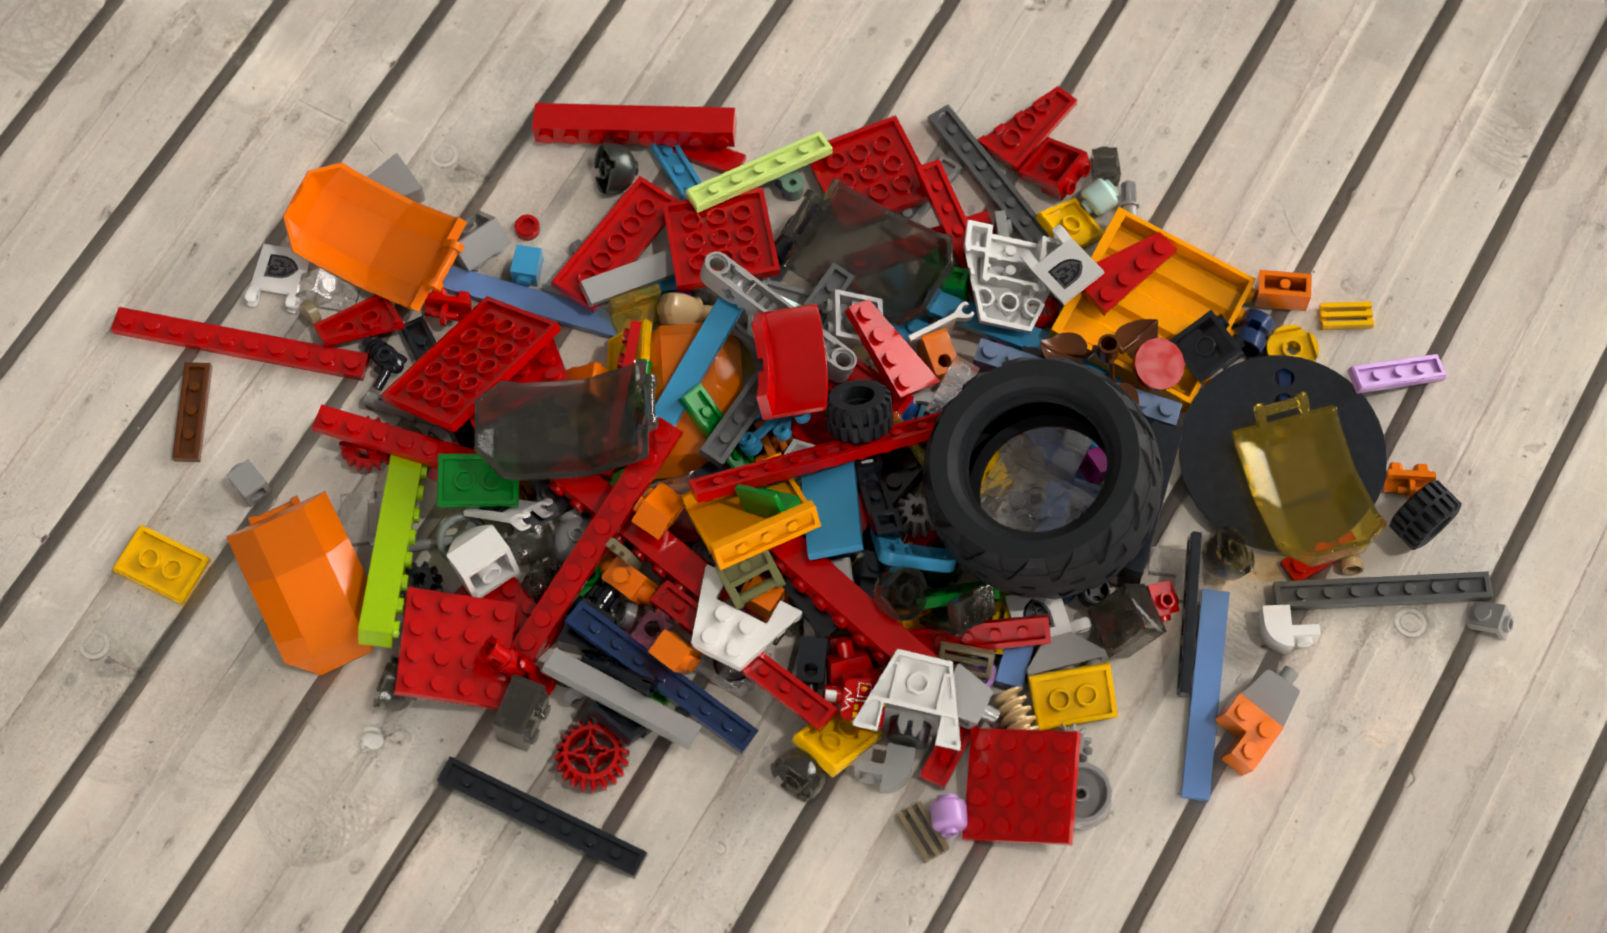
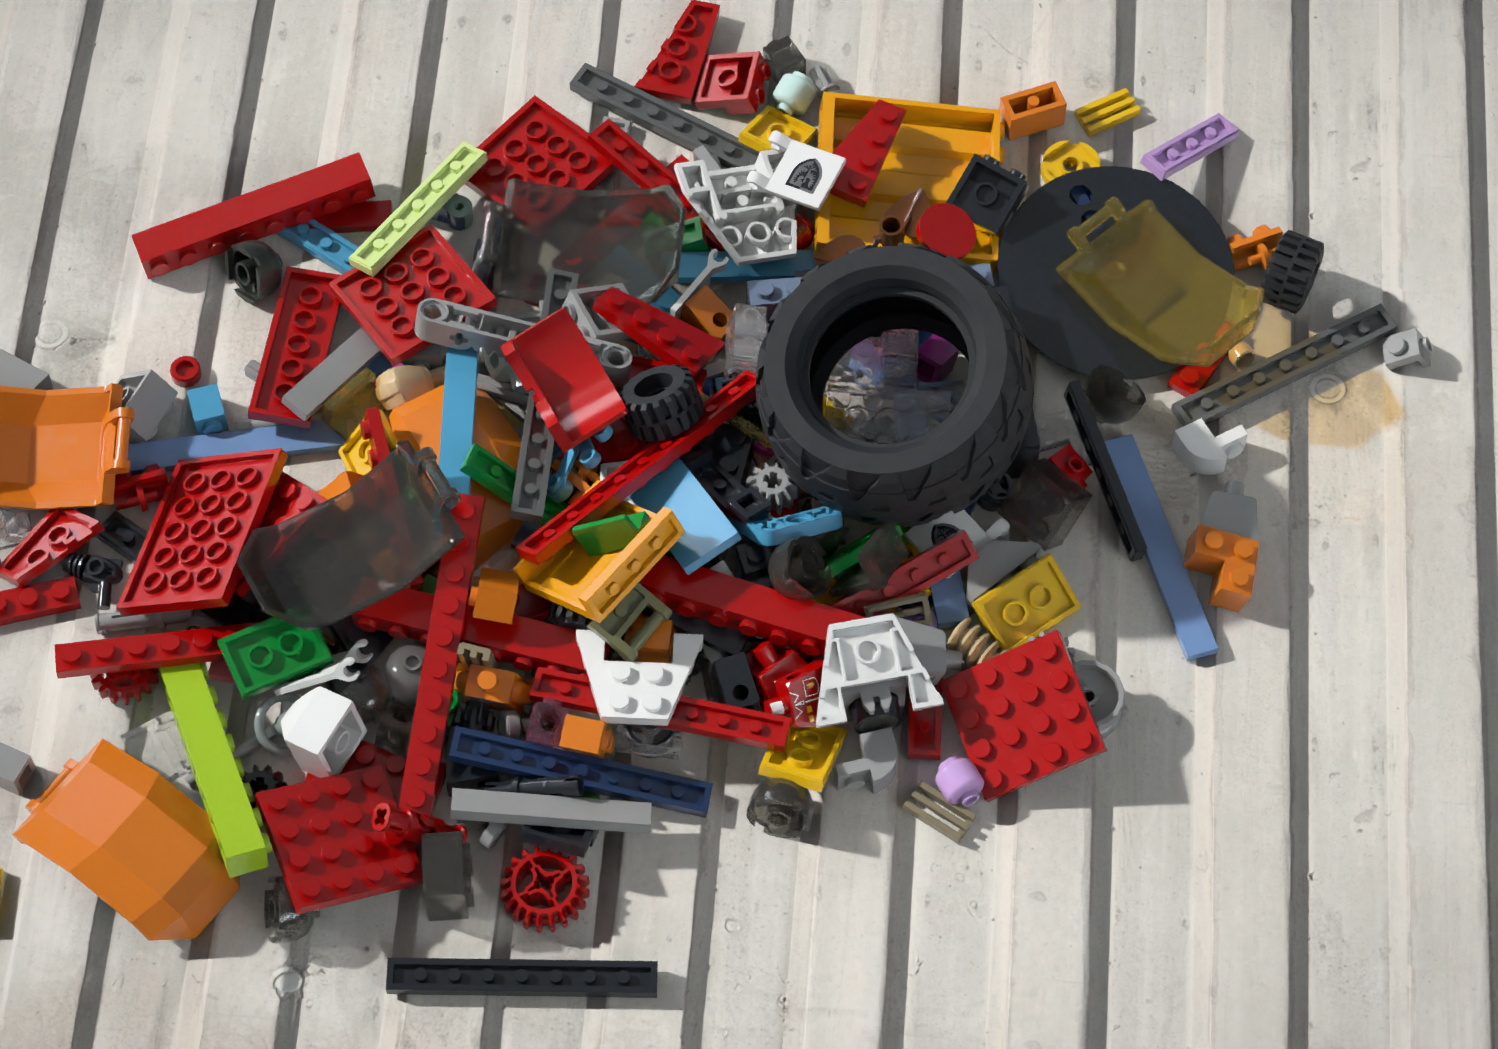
camera: 25 degrees left, 5 degrees down
(571, 514) = (392, 647): light grey tile -> none
(1254, 330) = (1027, 158): dark blue wheel -> none

